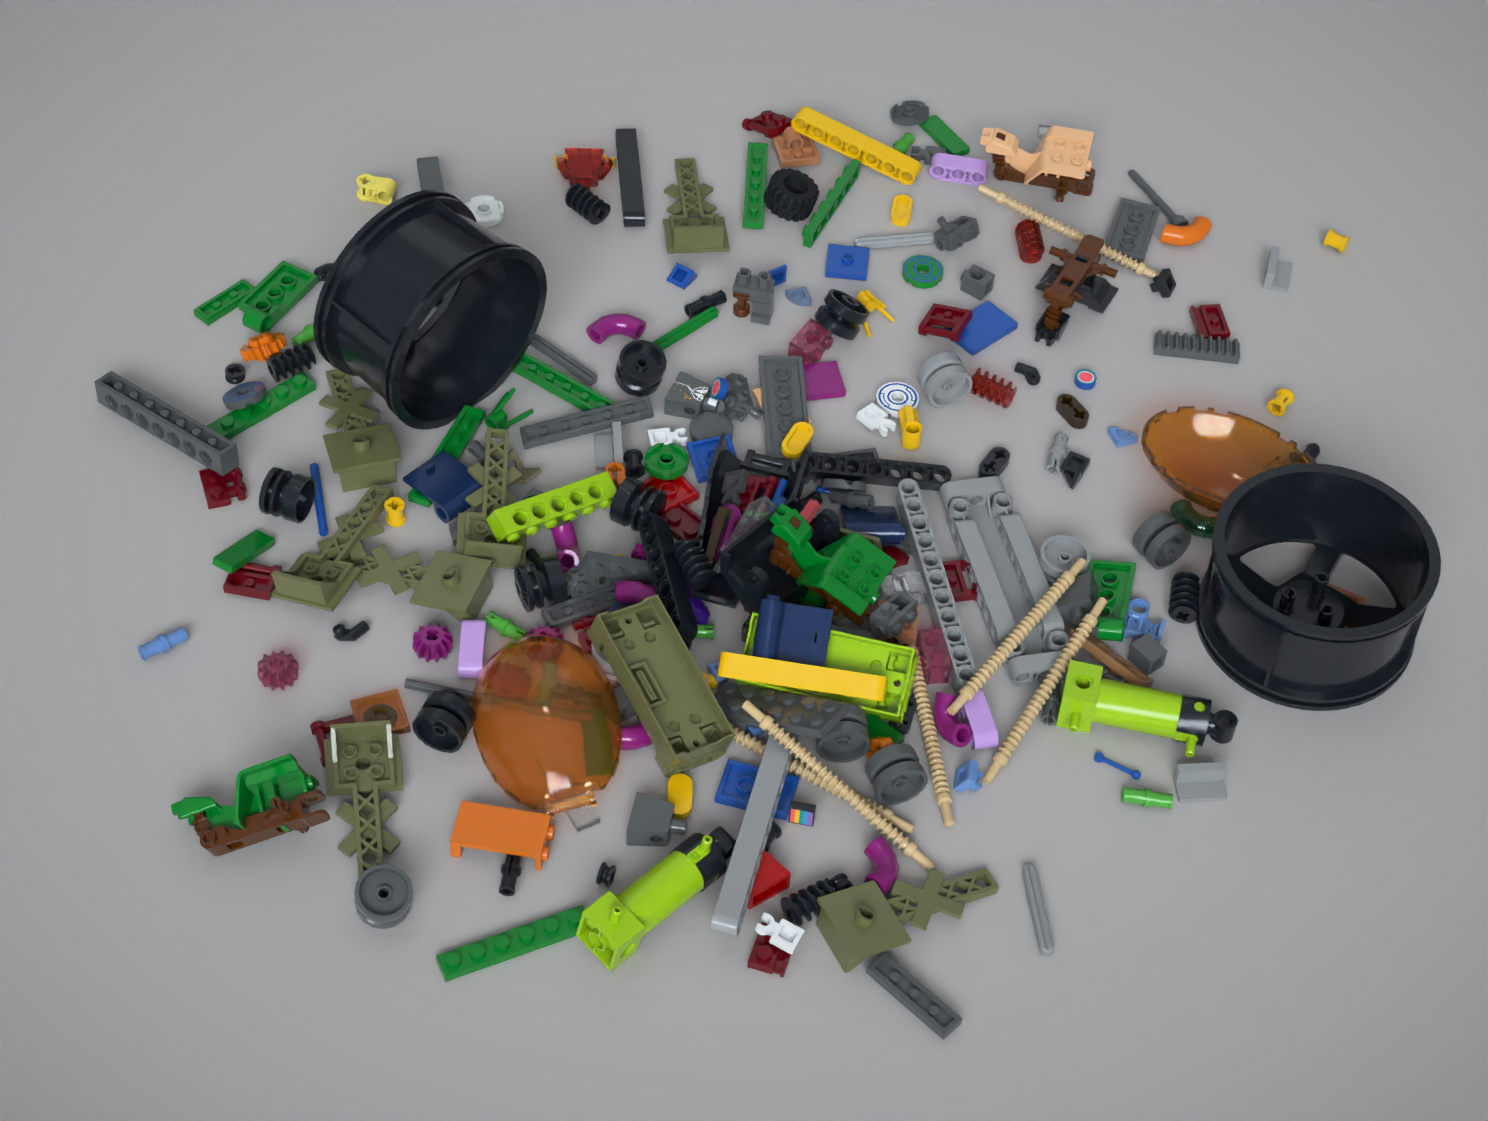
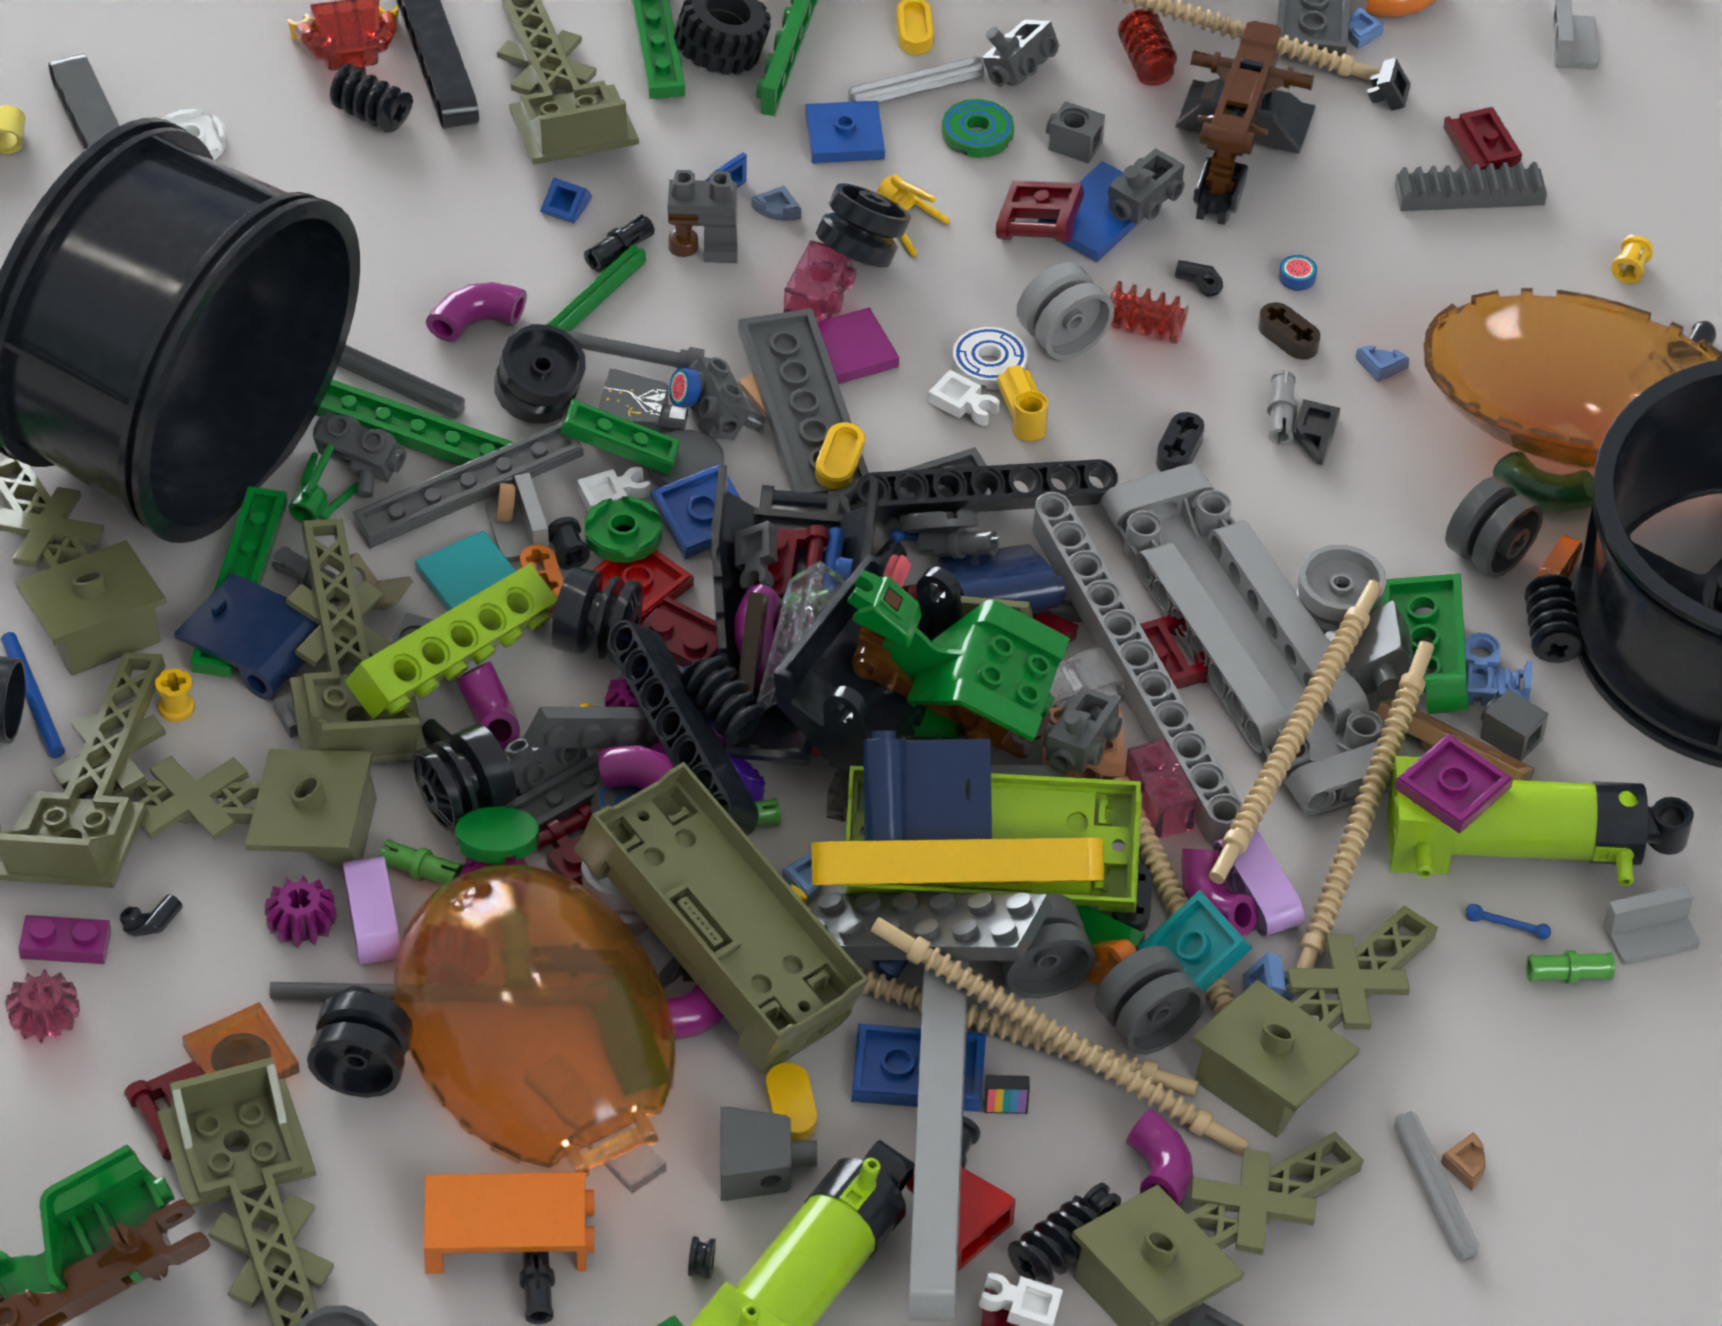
camera: 10 degrees left, 0 degrees up
(300, 636) = (64, 939): none -> magenta plate
(533, 395) = (363, 450): none -> dark grey brick
(550, 617) = (496, 833): none -> green tile
(572, 468) = (463, 569): none -> teal tile
(604, 436) = (505, 503): none -> medium nougat tile
(676, 409) = (620, 436): none -> green tile
(698, 364) = (639, 352): none -> dark grey piece
(933, 746) = (1200, 940): none -> teal tile
(960, 816) = (1273, 1054): none -> olive piece
(1008, 318) = (1146, 187): none -> dark grey brick
(1051, 706) = (1376, 844): dark grey pin -> none
(1059, 898) = (1466, 1161): none -> medium nougat tile
(1099, 680) = (1453, 783): none -> magenta tile
(1156, 249) = (1363, 28): none -> medium blue tile
(1198, 564) = (1562, 557): none -> orange beam

